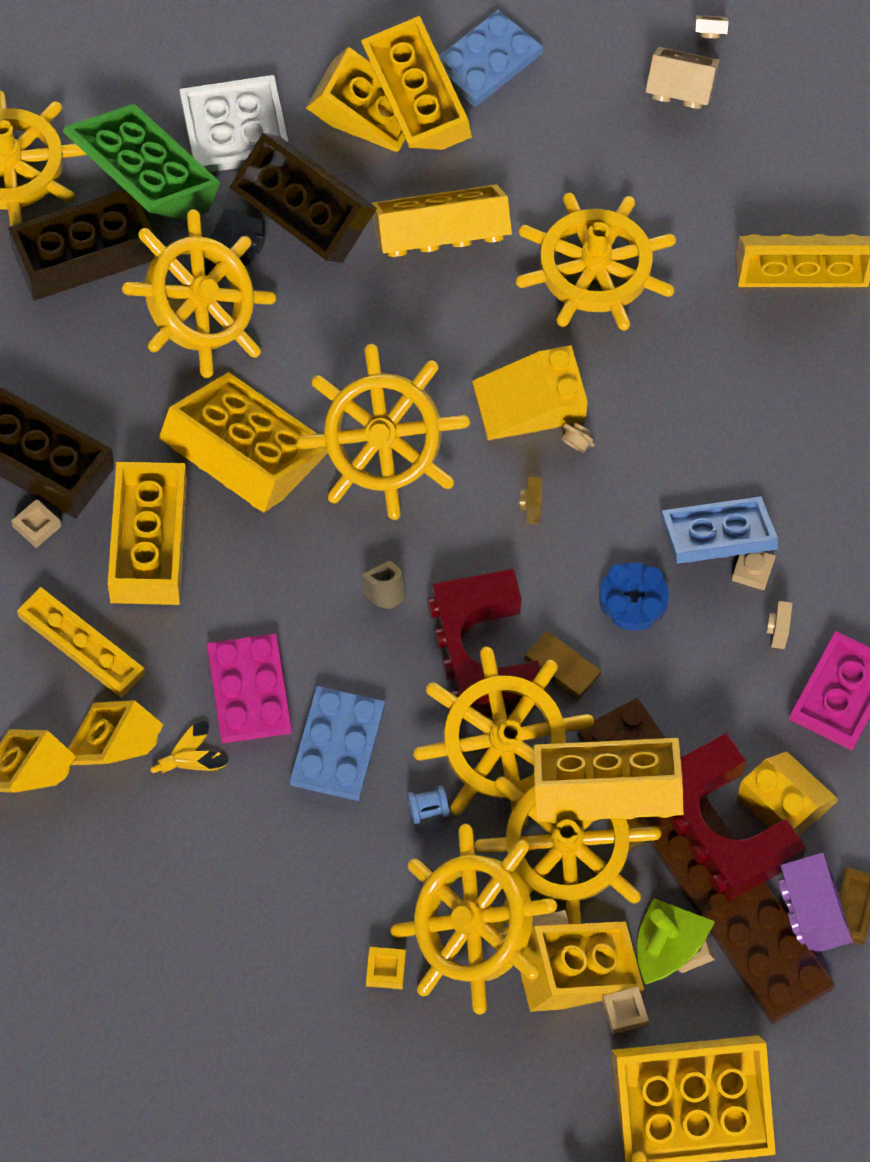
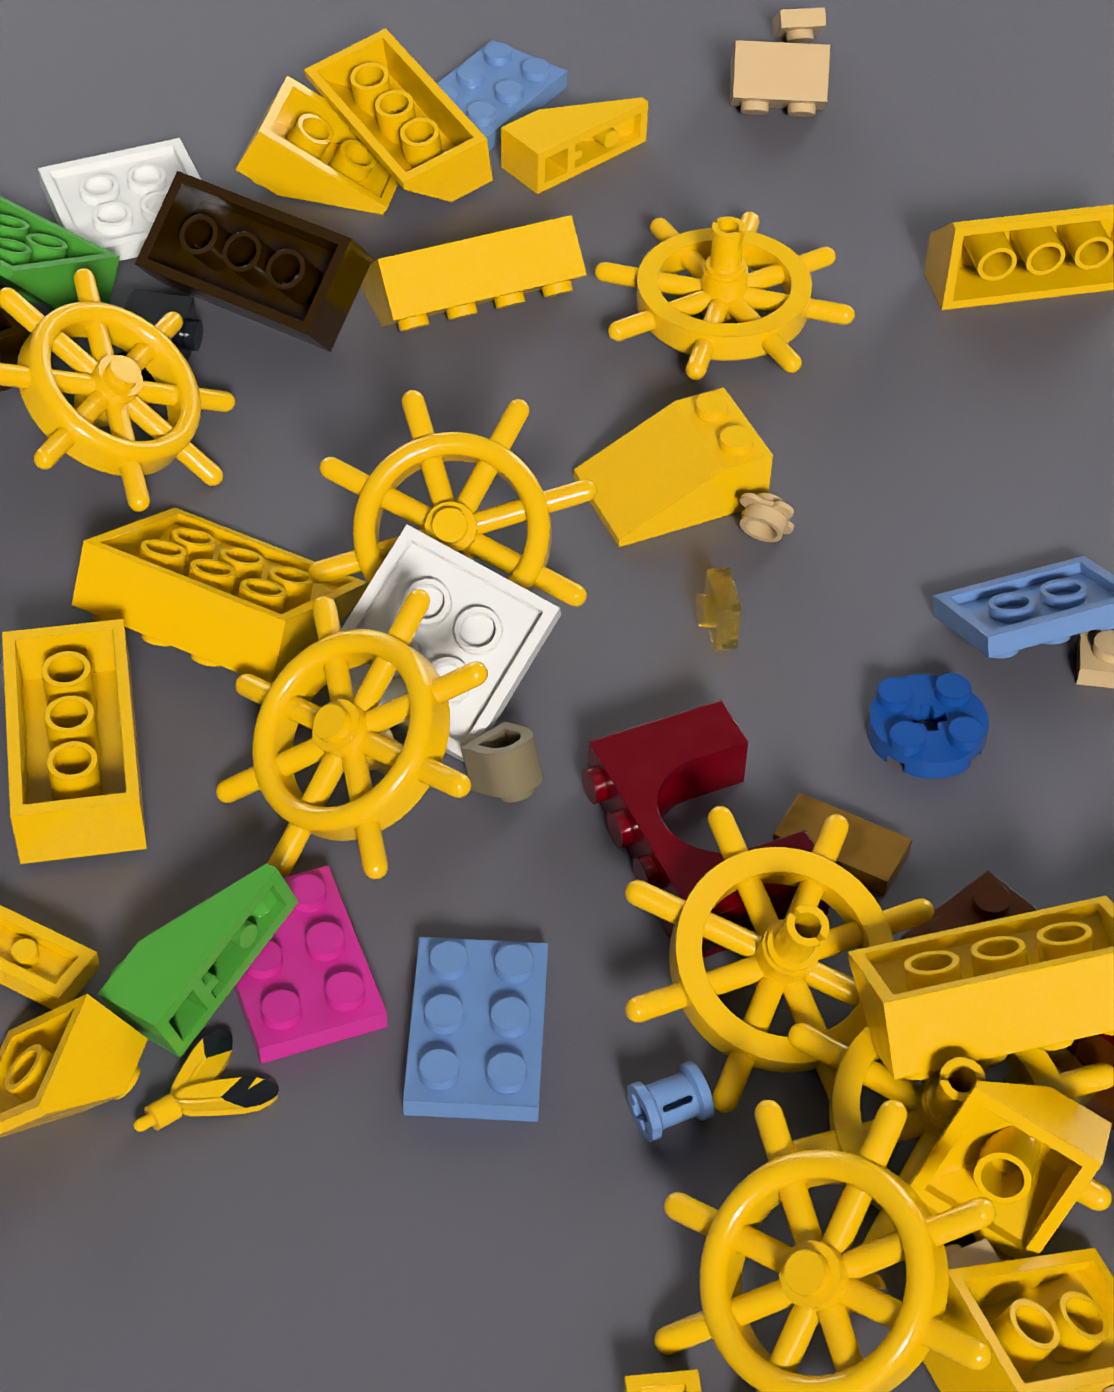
camera: 10 degrees left, 15 degrees down
(190, 687) = (191, 964): none -> bright green slope
(325, 569) = (352, 735): none -> yellow piece
(360, 505) = (468, 620): none -> white plate
(527, 112) = (570, 140): none -> yellow slope
(587, 875) = (1022, 1152): none -> yellow slope

